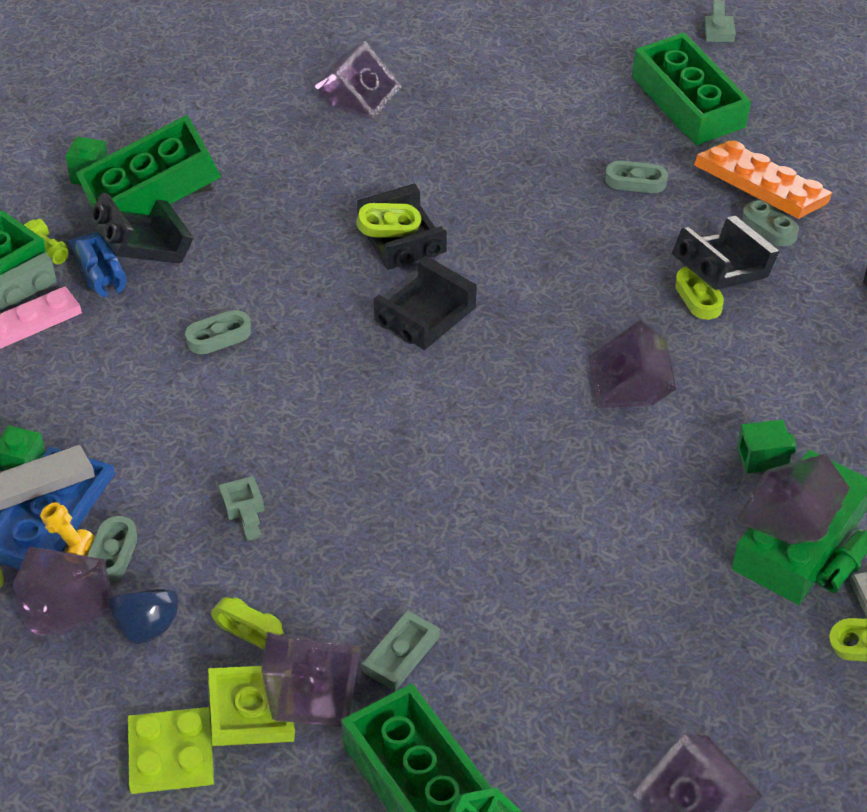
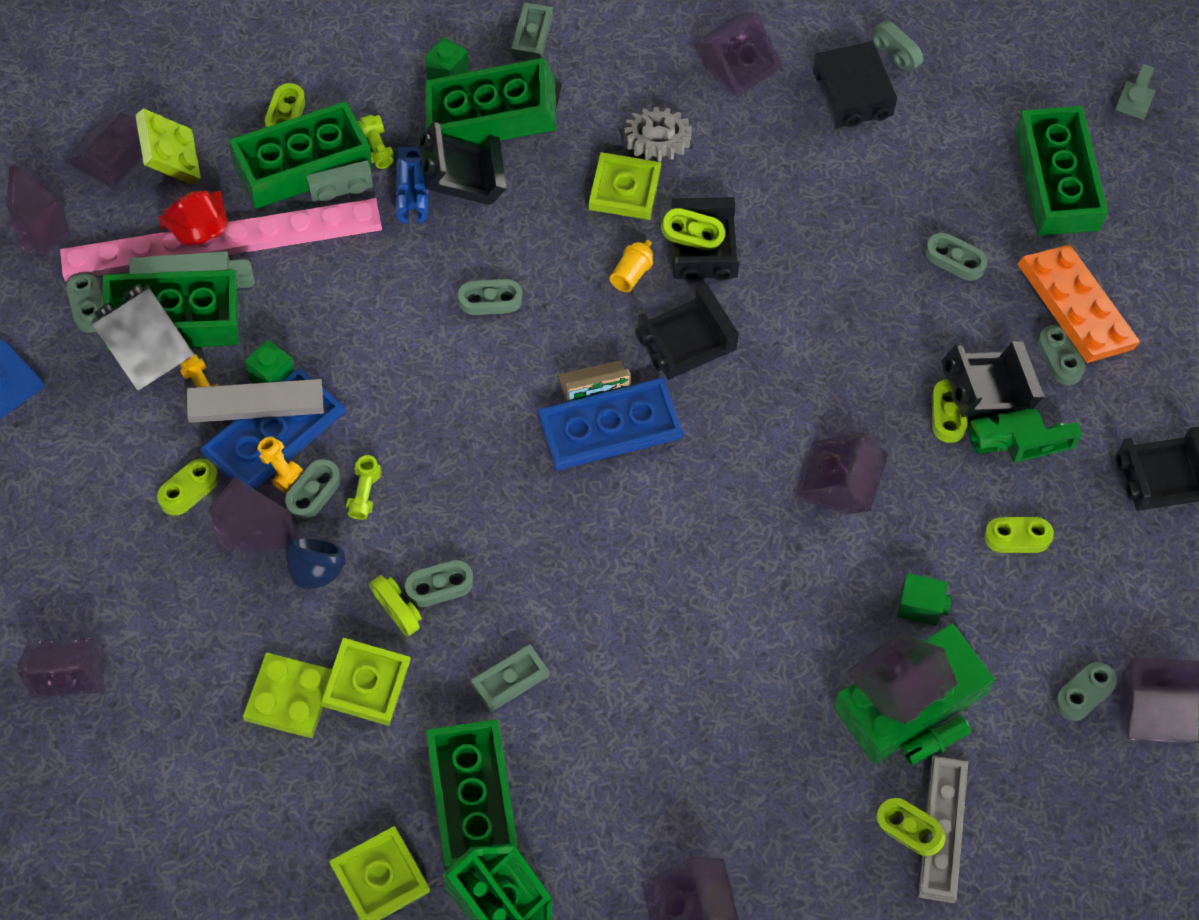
camera: 20 degrees right, 15 degrees up
(155, 112) = (532, 31): none -> sand green plate
(163, 516) = (368, 473): none -> lime bar
(243, 501) = (438, 482): sand green plate -> none
(282, 590) = (437, 580): none -> sand green plate
(305, 209) = (625, 186): none -> lime plate
(309, 678) = (419, 679): clear purple slope -> none
(316, 160) = (657, 134): none -> light grey gear
(344, 268) = (631, 267): none -> yellow piece
(357, 371) = (594, 380): none -> dark tan panel
(388, 400) = (609, 424): none -> blue plate
(477, 76) = (856, 84): none -> black panel
(495, 40) = (898, 45): none -> sand green plate
(776, 290) = (1022, 435): none -> green plate
(818, 370) = (1020, 535): none -> lime plate

